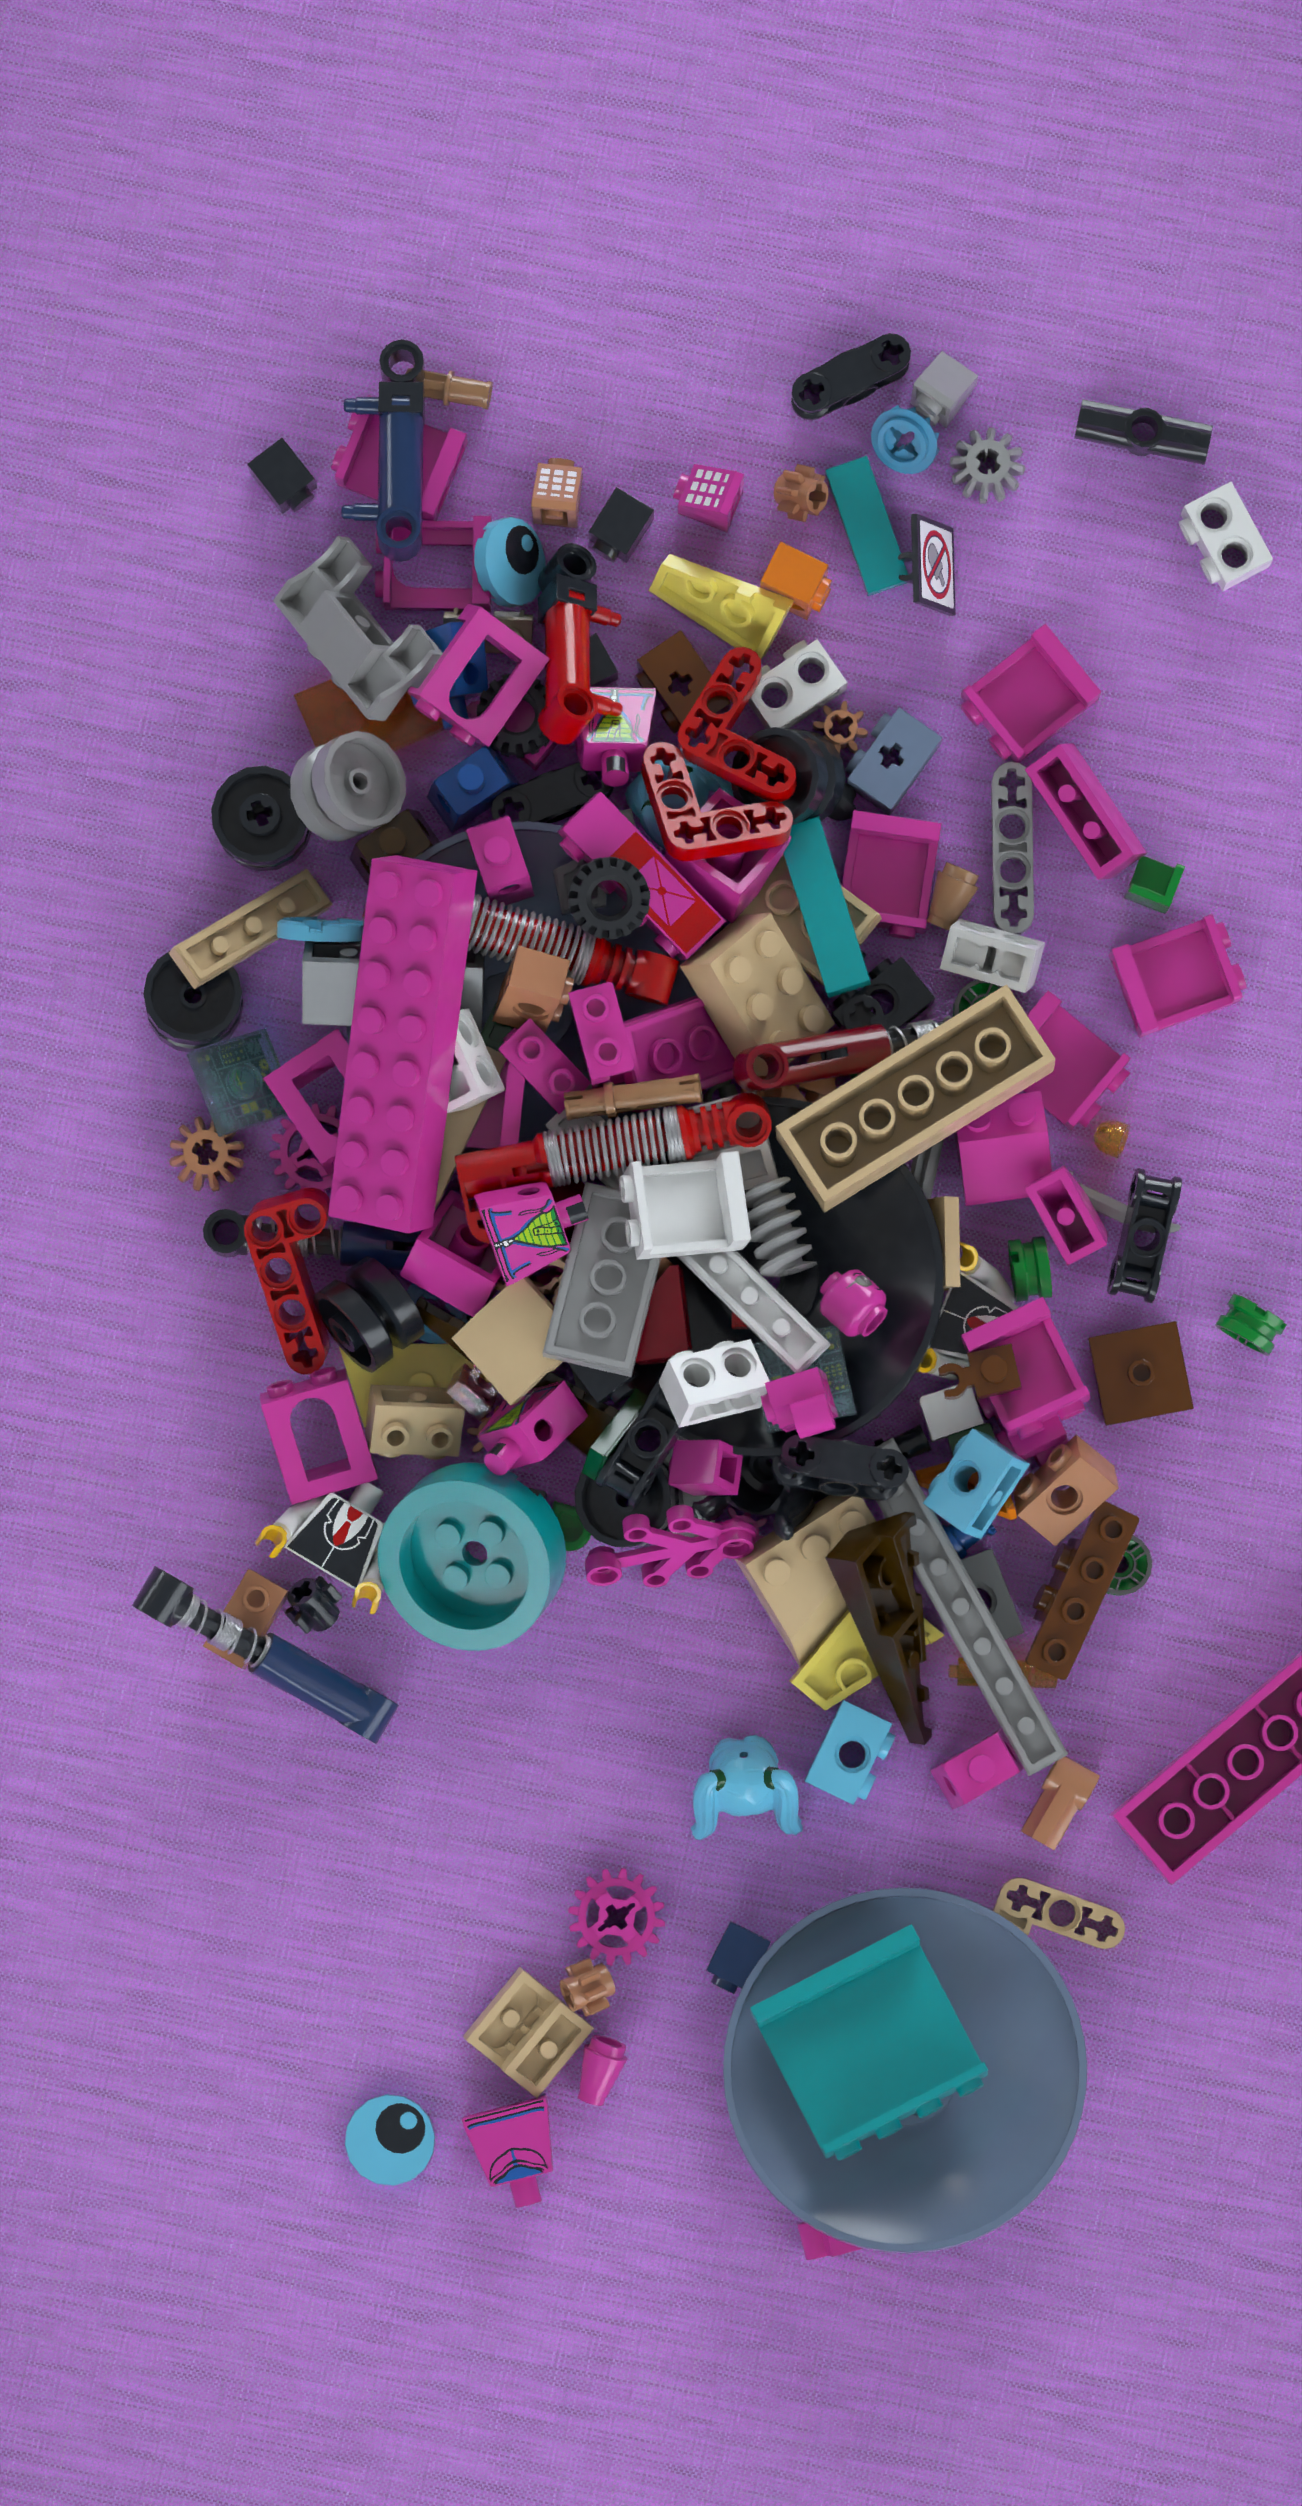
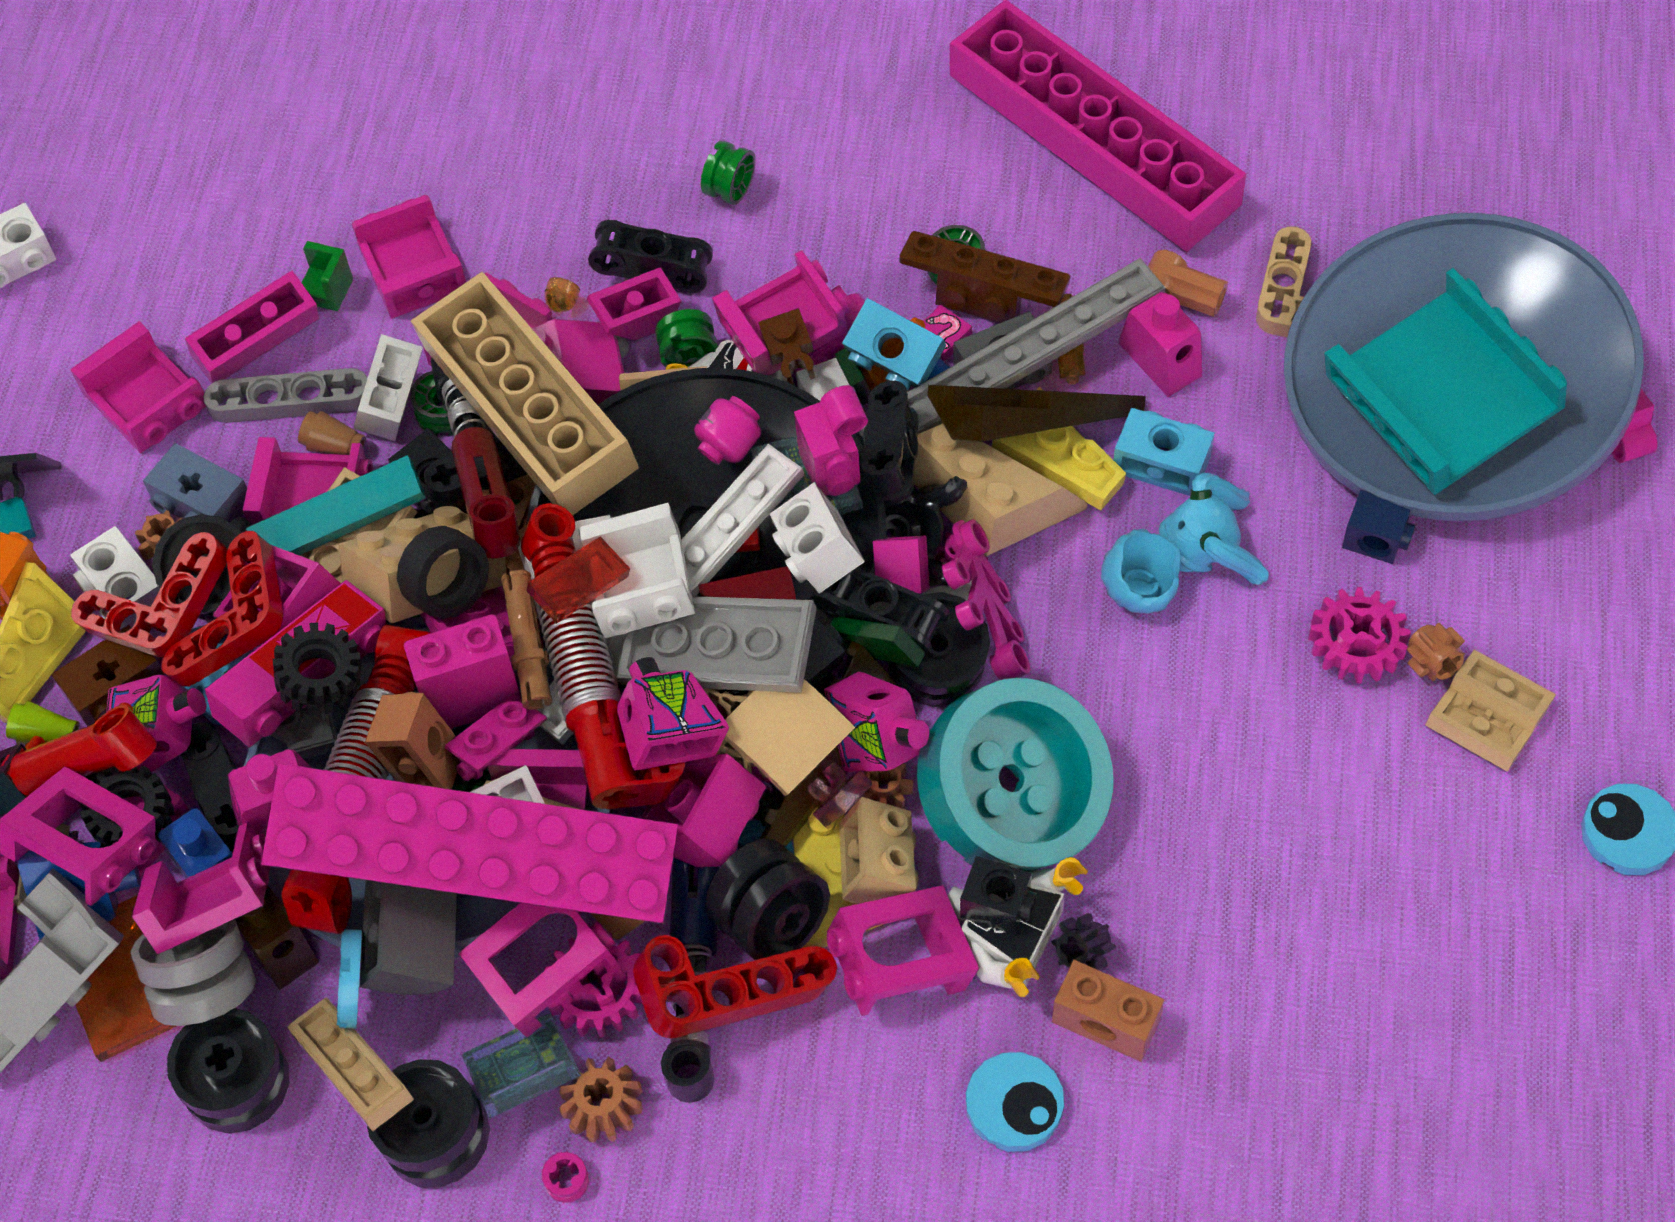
camera: 95 degrees left, 25 degrees down
(134, 1131) = (551, 1172): none -> dark pink bush
(175, 1526) = (1014, 1101): none -> medium azure tile
(269, 1657) = (1107, 1048): piece -> none
(345, 1506) = (991, 877): none -> black brick
(402, 796) = (183, 910): none -> dark pink panel
(513, 2146) = (1608, 707): dark pink torso -> none
(600, 2068) = (1513, 638): dark pink cone -> none
(639, 616) = (33, 720): none -> lime cone
(674, 1149) = (578, 579): none -> clear red tile
(700, 1709) = (1142, 571): none -> medium azure hair
(717, 1016) = (422, 554): none -> black tyre
(776, 1230) = (681, 494): light grey piece -> none
(1025, 1545) = (949, 327): none -> dark pink tile
(1060, 1511) = (893, 282): nougat brick -> none
(1140, 1373) = (769, 250): reddish brown plate -> none

